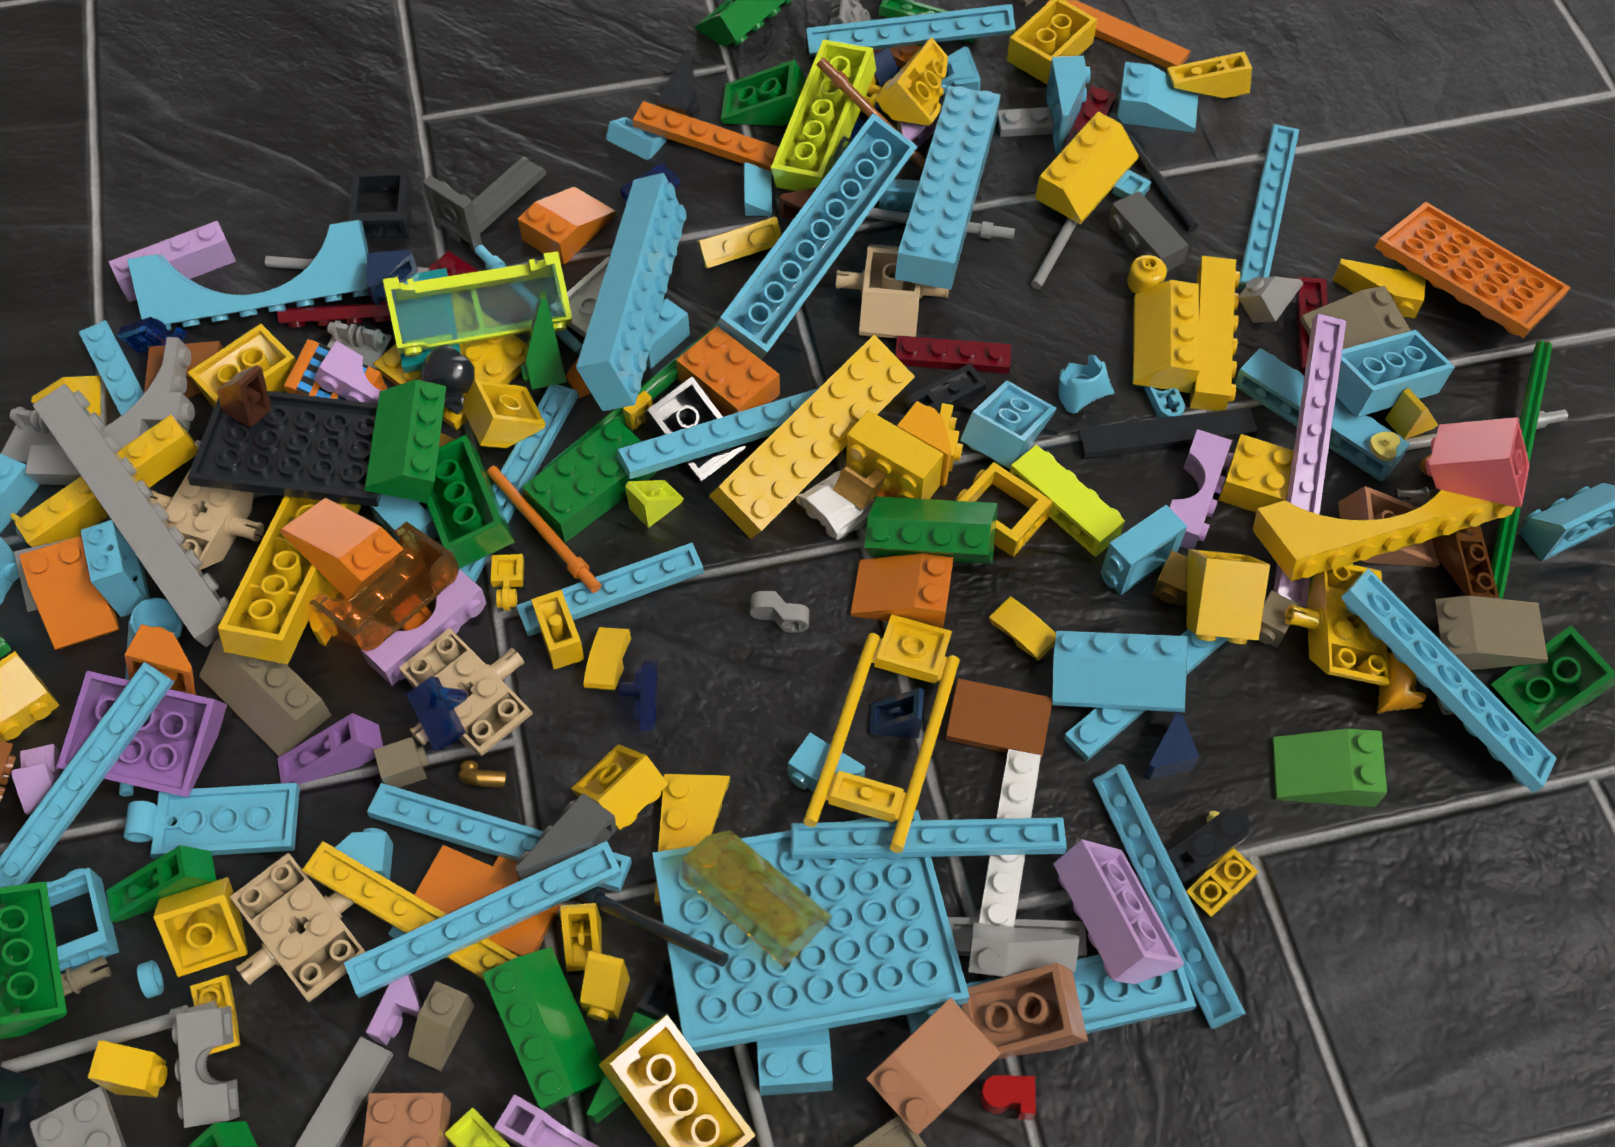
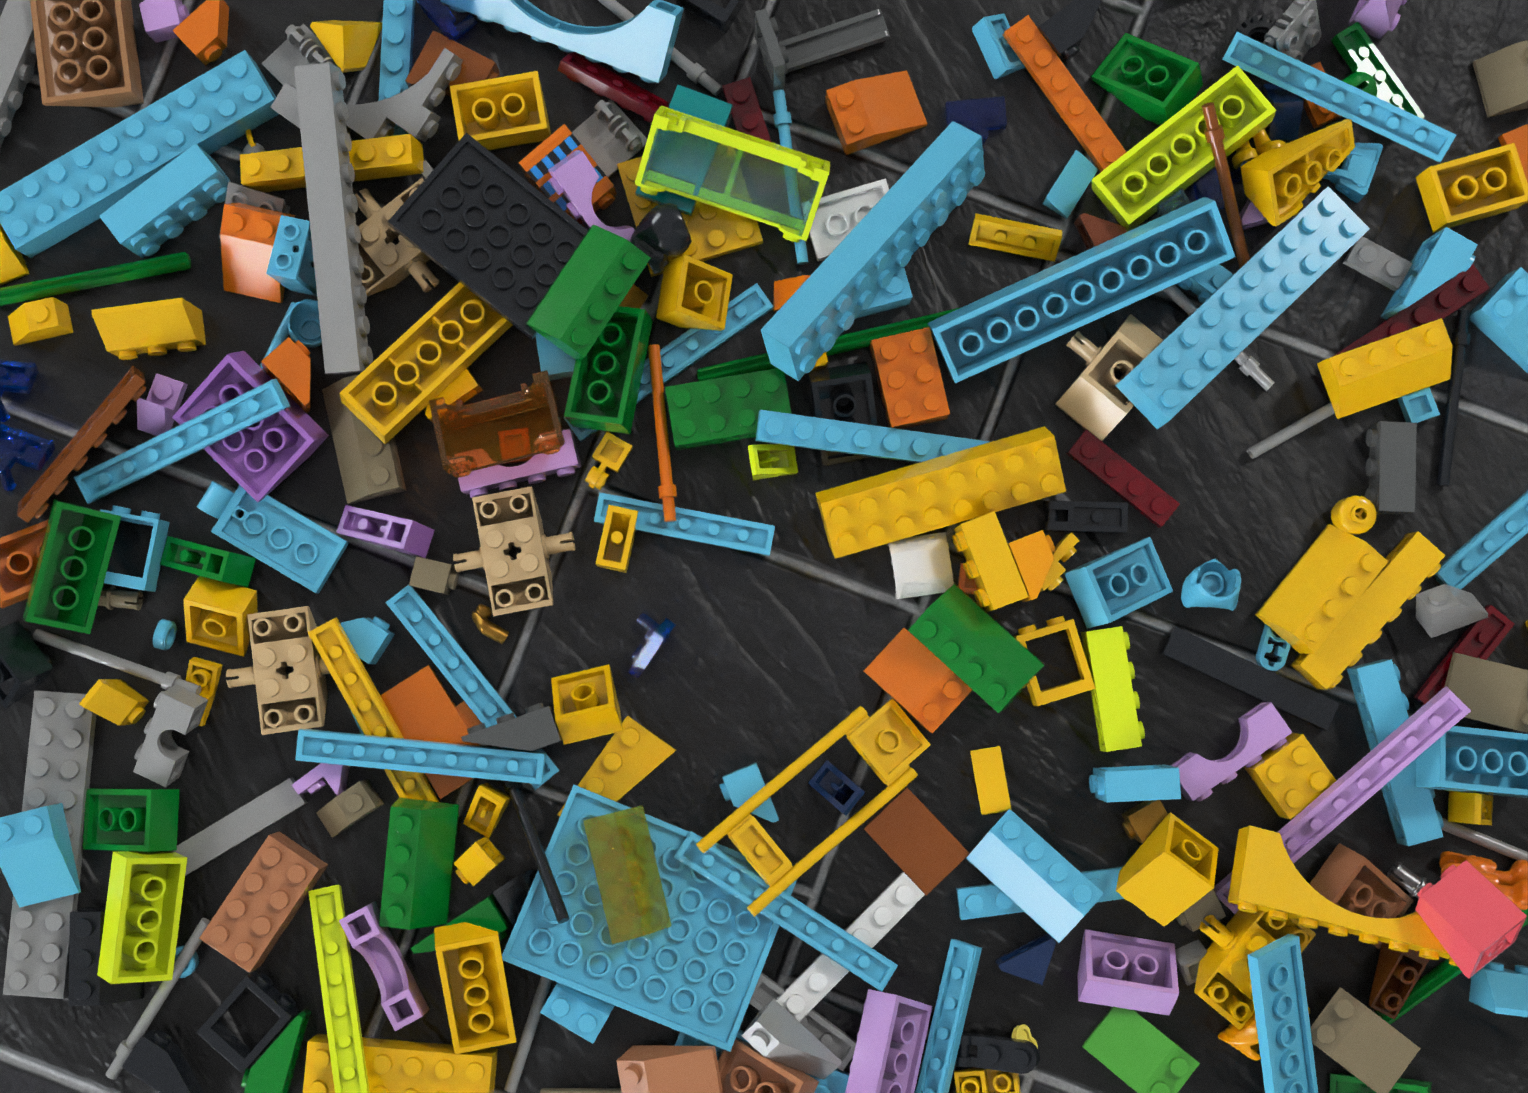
camera: 35 degrees right, 25 degrees up
(245, 396) = (473, 167): copper slope -> none
(342, 545) = (480, 365): orange slope -> none
(387, 265) = (673, 84): dark blue slope -> none
(436, 711) = (479, 561): clear blue plate -> none
(542, 352) = (762, 255): green slope -> none
(605, 658) = (643, 586): yellow slope -> none
(788, 616) = (808, 644): light grey piece -> none
(857, 488) = (941, 570): pearl gold panel -> none
(1262, 708) = (1127, 972): none -> lavender slope
(1305, 671) = (1188, 960): none -> light grey slope
(1384, 445) = (1418, 825): light yellow piece -> none

